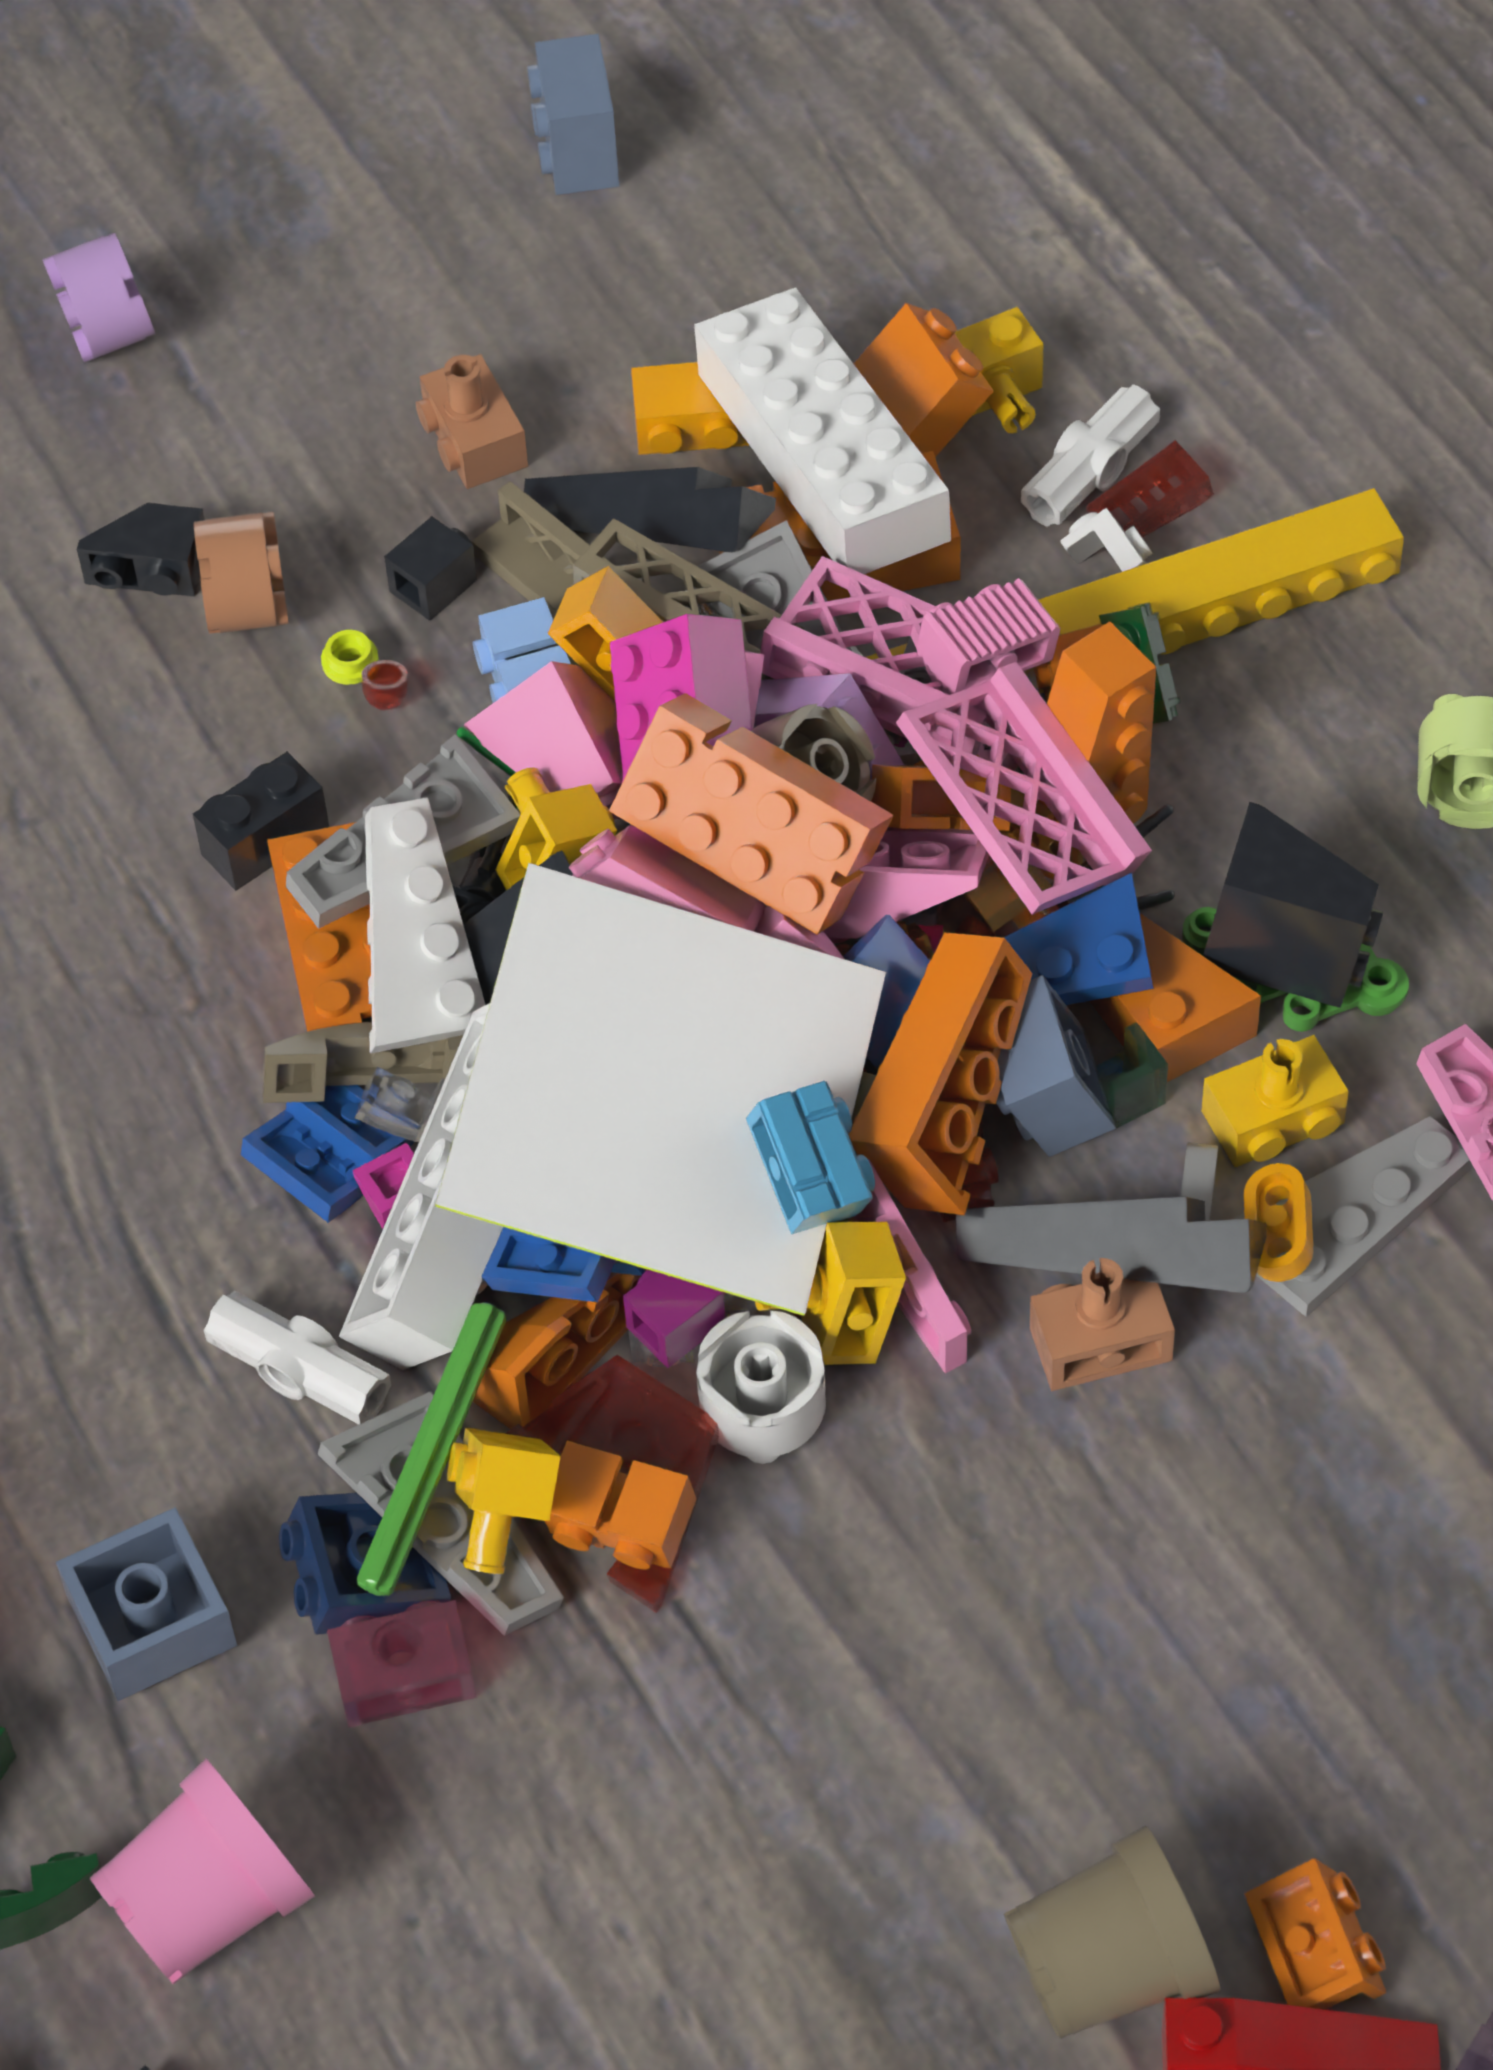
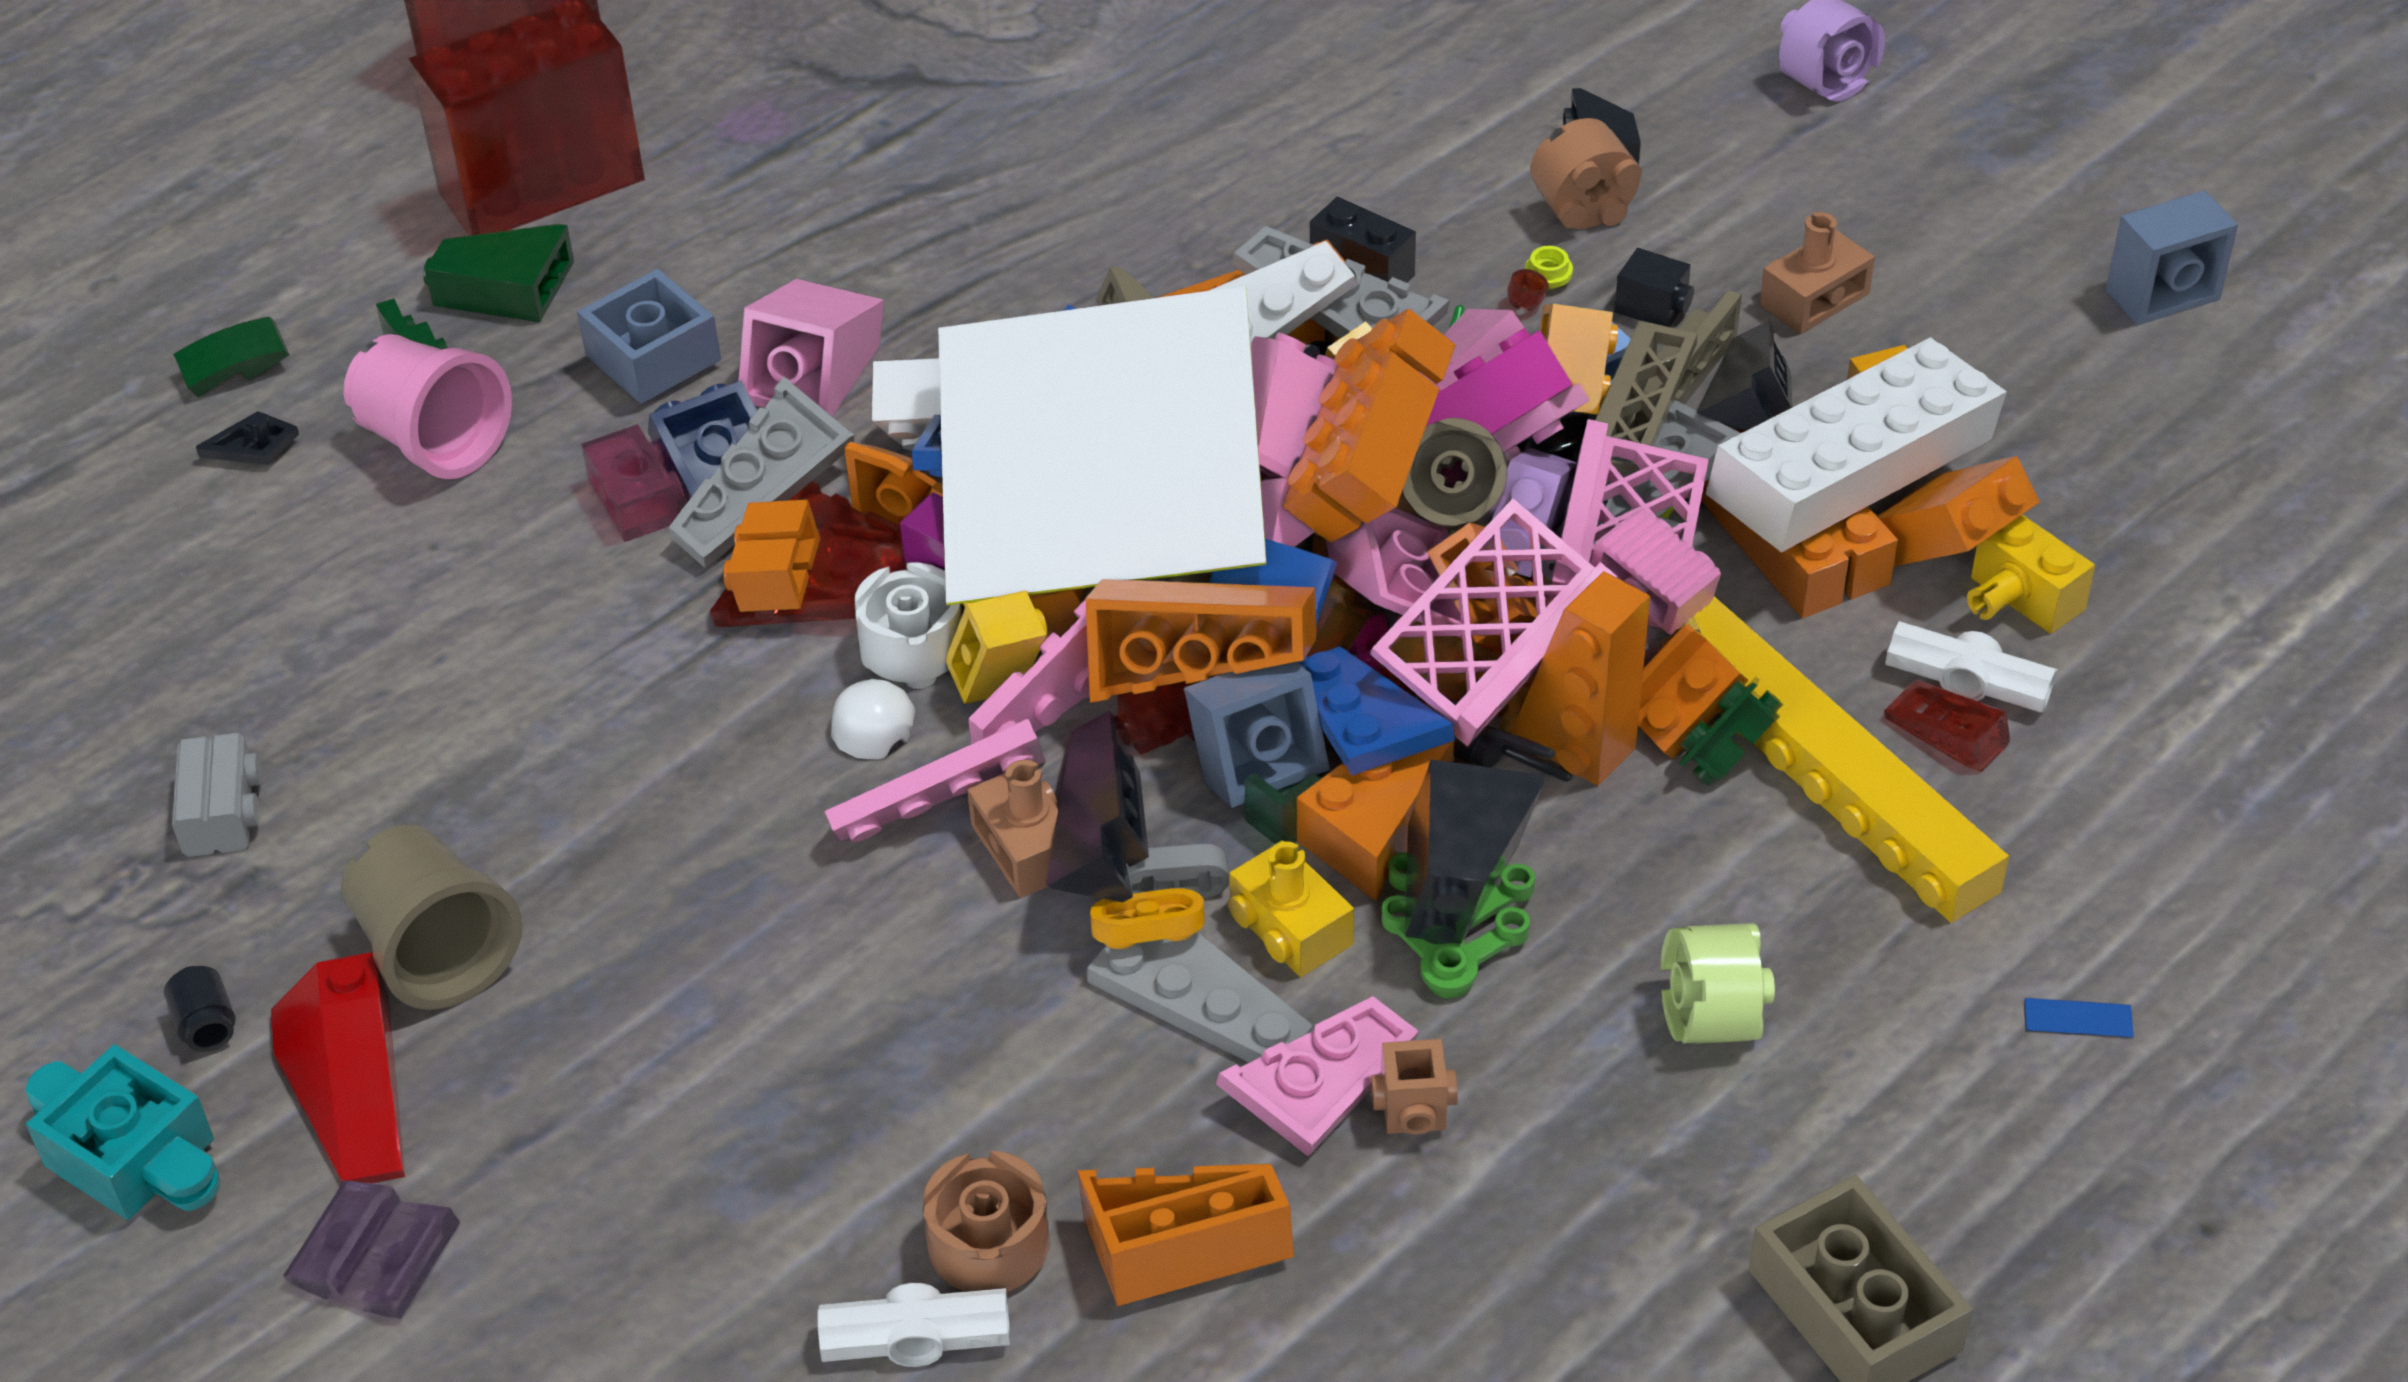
camera: 75 degrees right, 10 degrees down
(224, 1427) = (812, 338): none -> bright pink slope
(297, 1357) = (901, 340): white piece -> none
(431, 1450) = (788, 431): bright green axle -> none
(500, 1480) = (755, 464): yellow brick -> none
(811, 1156) = (1066, 549): dark azure brick -> none
(877, 1459) = (871, 718): none -> white hair
(1023, 1395) = (934, 782): none -> bright pink wing
(1100, 530) = (1867, 691): white bracket -> none
(1316, 1937) = (467, 1073): orange bracket -> none

